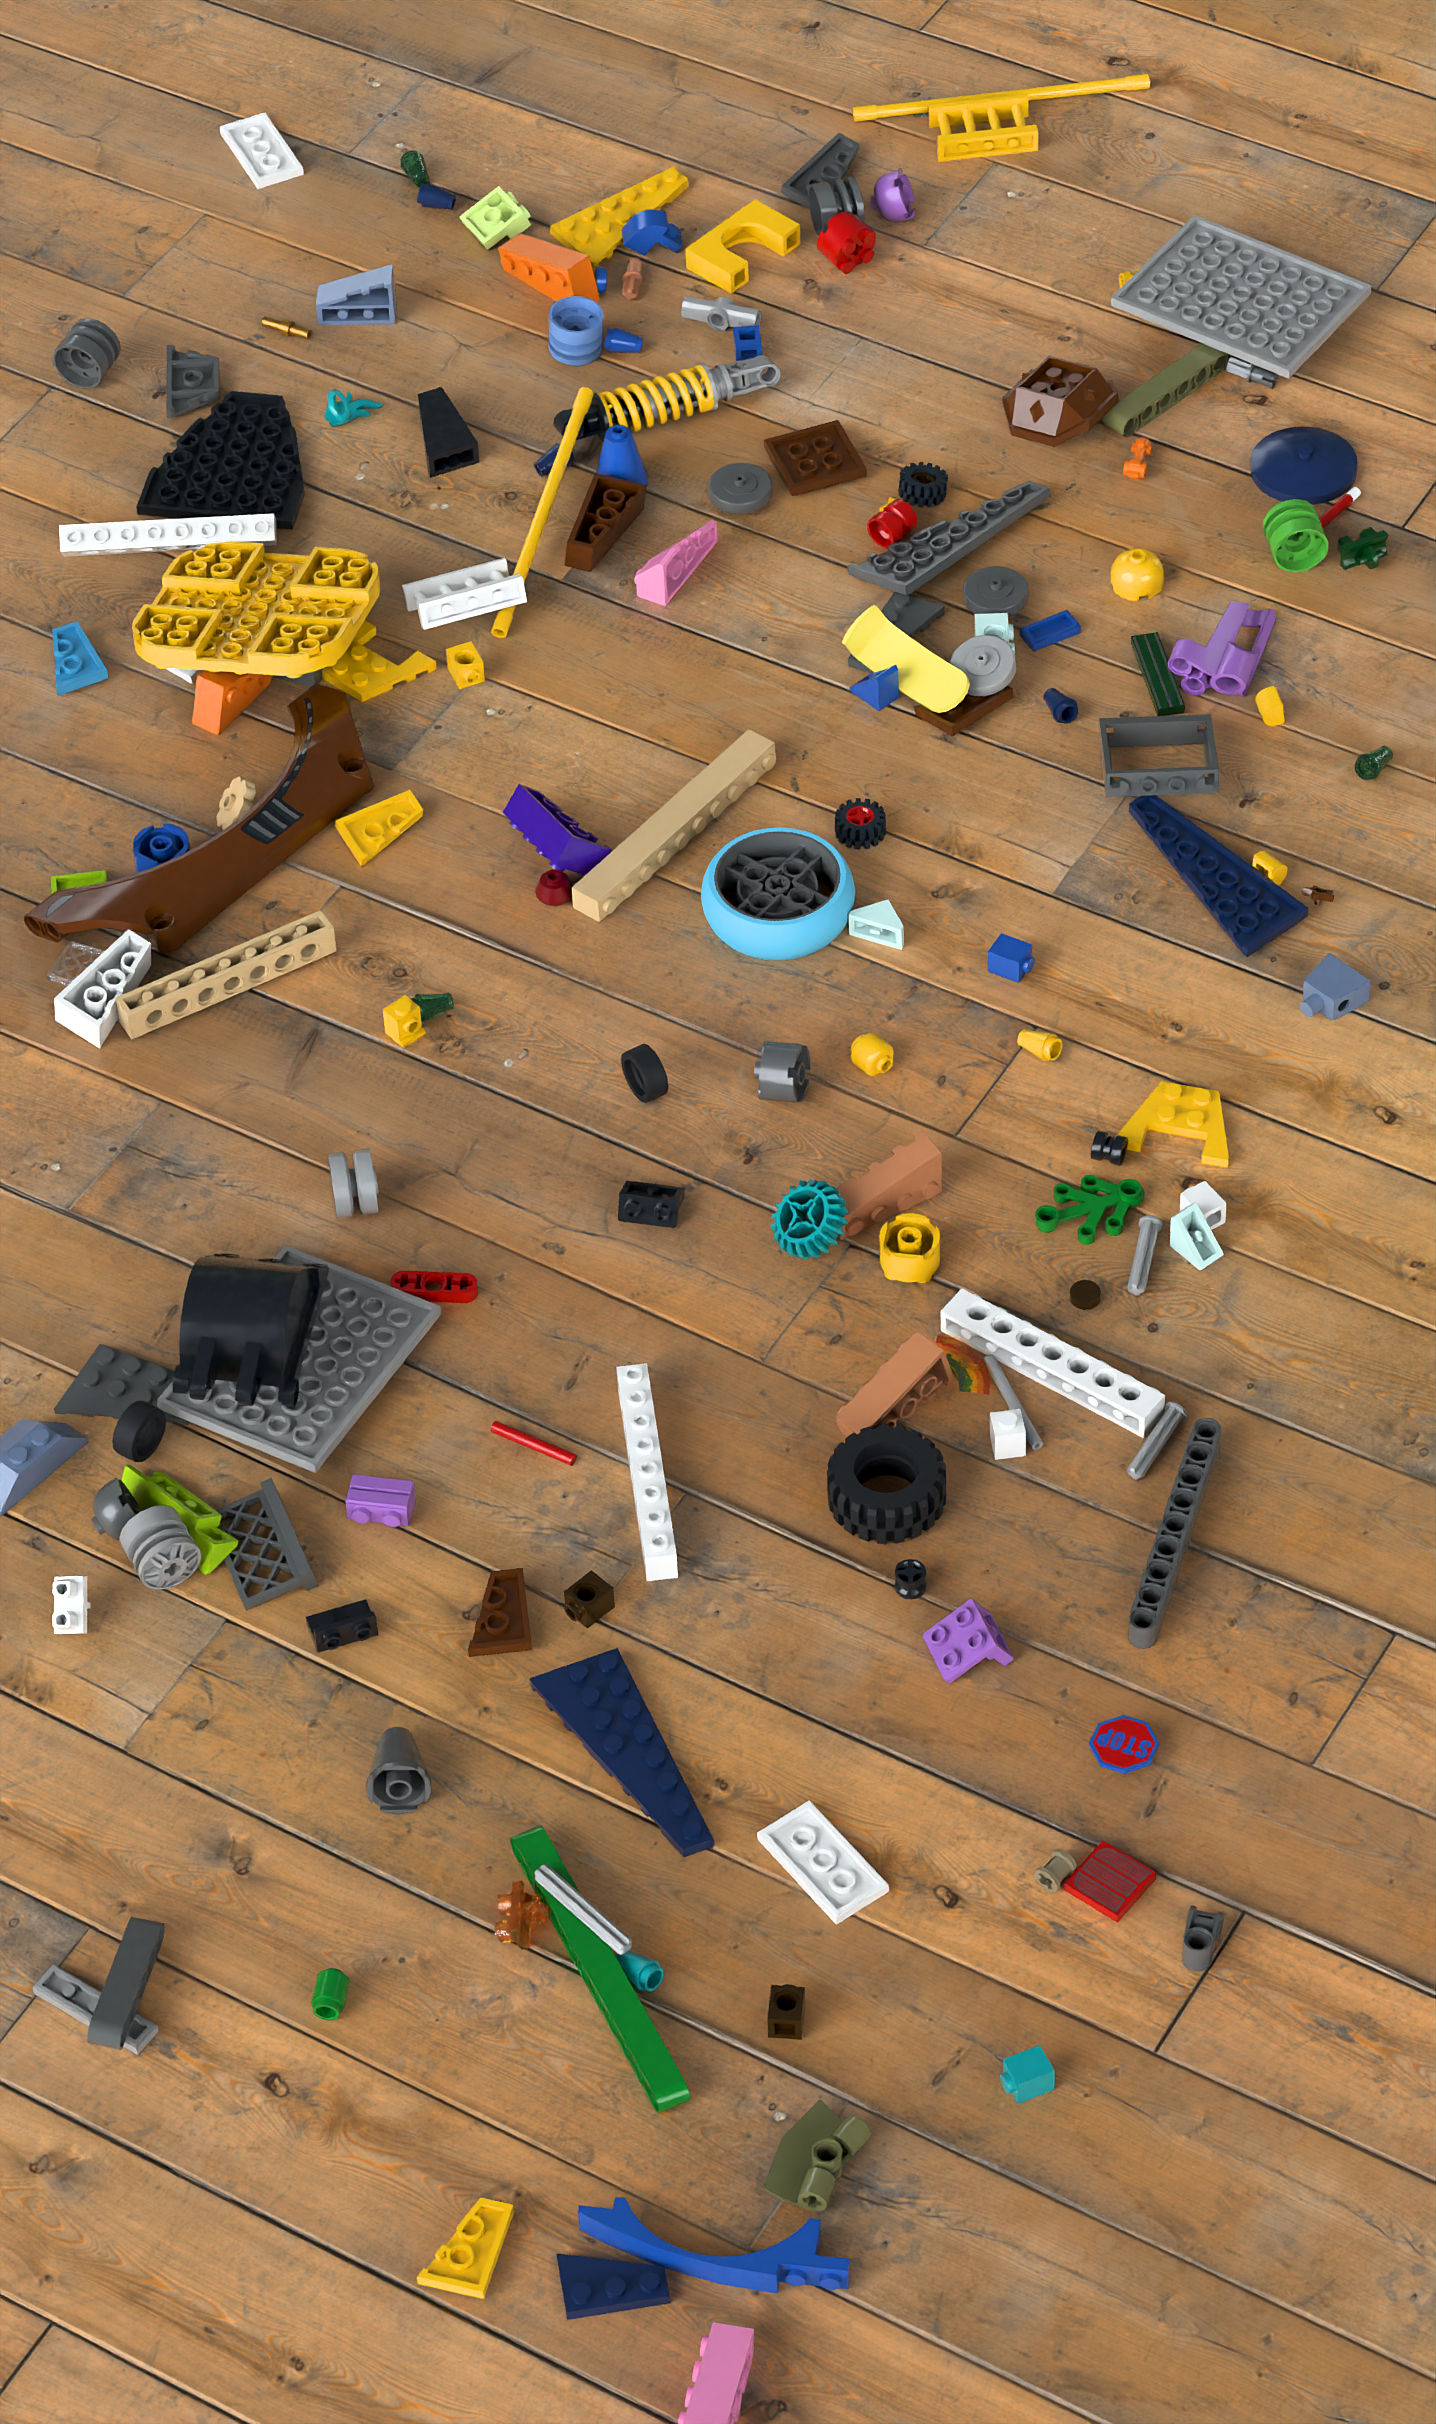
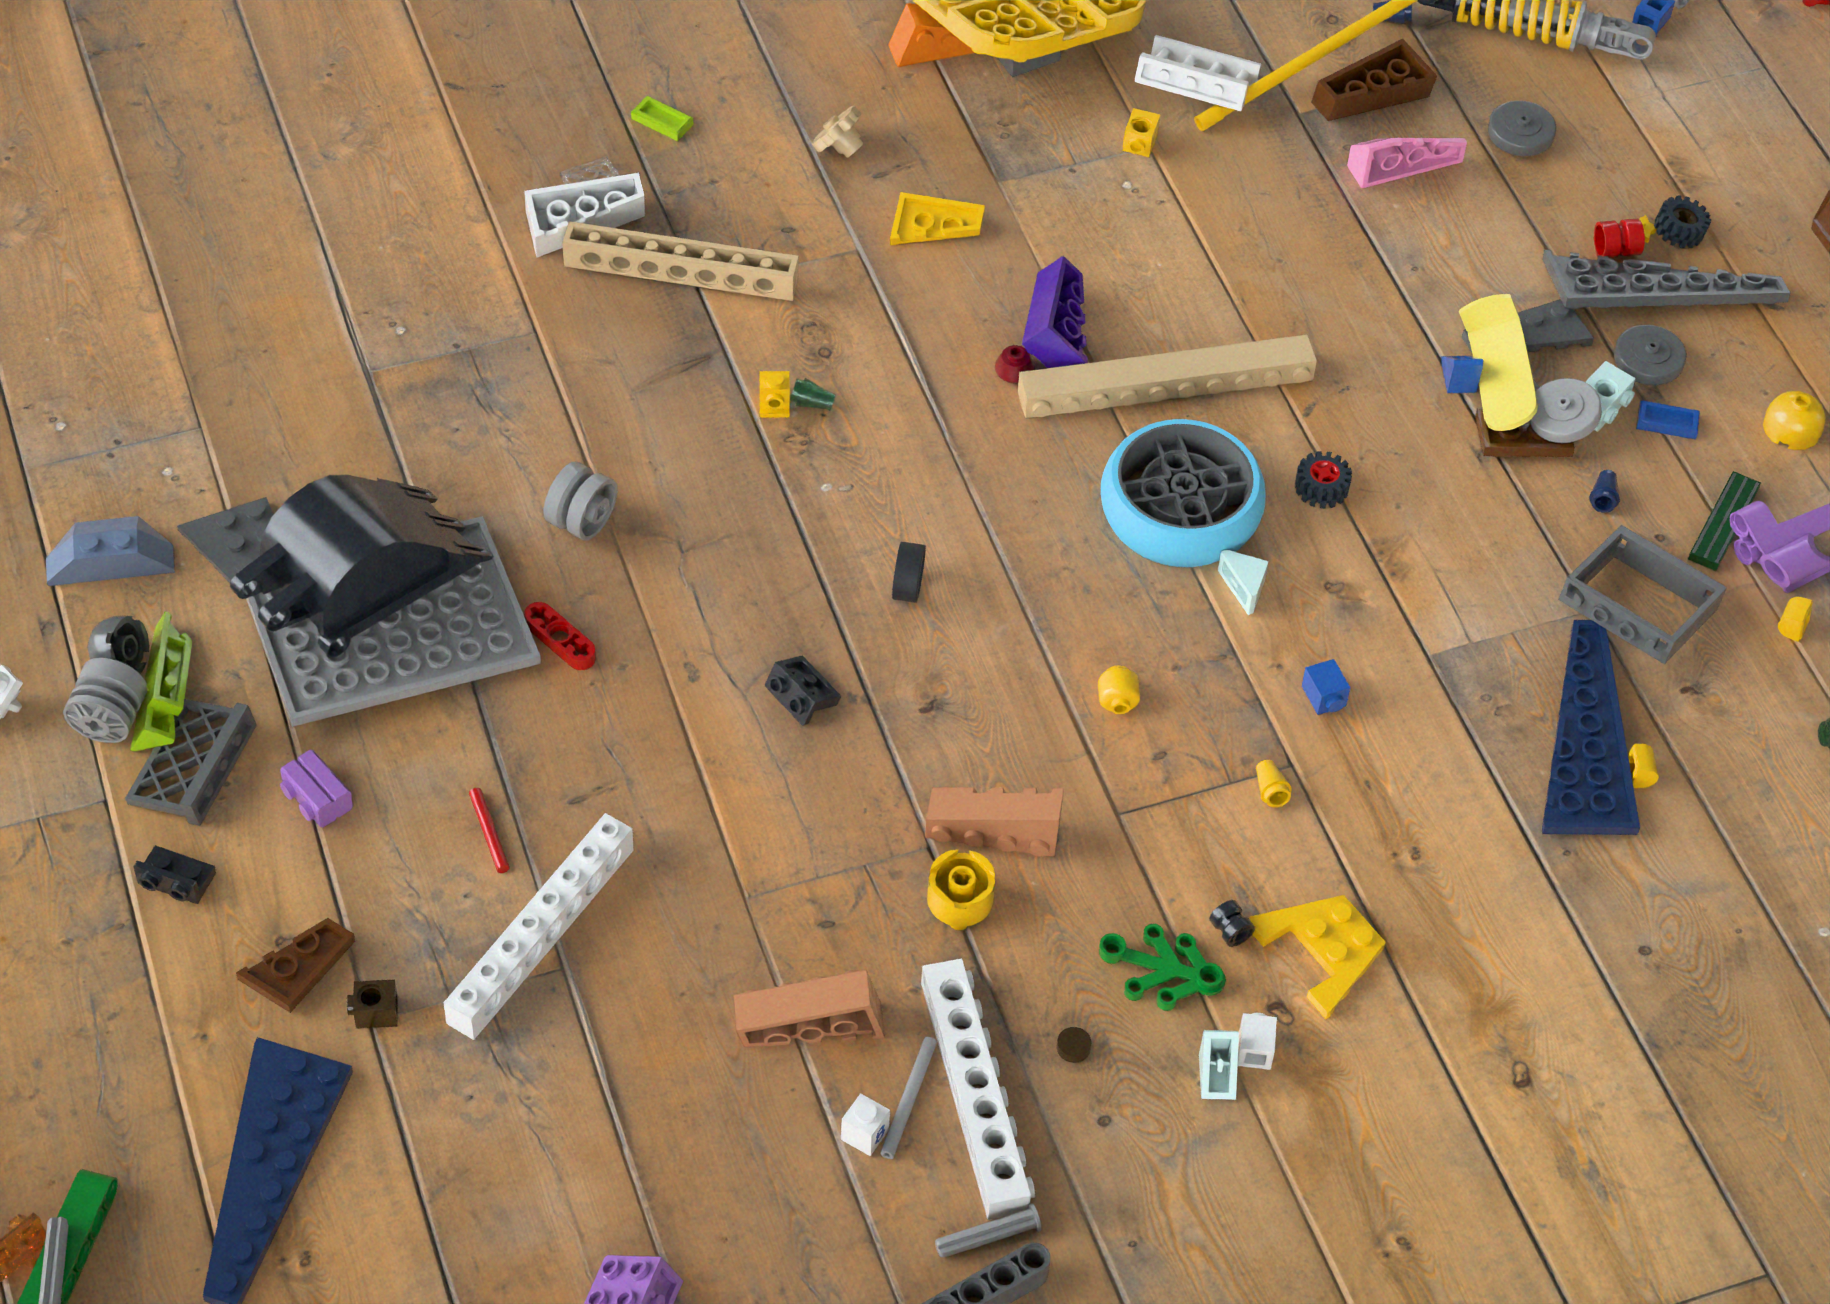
camera: 35 degrees right, 5 degrees up
(139, 1431) = (197, 576): black tyre -> none
(159, 845) = (739, 133): blue brick -> none
(187, 892) = (728, 174): reddish brown panel -> none
(368, 674) = (1060, 87): yellow wing -> none
(398, 1774) = (64, 1036): dark grey cone -> none
(621, 456) = (1440, 43): blue cone -> none
(782, 1072) = (1021, 652): dark grey brick -> none
(793, 1227) = (901, 799): teal gear -> none
(815, 458) = (1613, 142): reddish brown plate -> none
(891, 1514) = (718, 1129): black tyre -> none
(910, 1579) = (647, 1186): black wheel -> none
(965, 1365) = (905, 1030): clear yellow tile -> none
(1144, 1252) = (1160, 1046): light grey axle -> none
(1318, 894) = (1666, 821): reddish brown piece -> none
(1334, 989) = (1586, 921): sand blue torso -> none

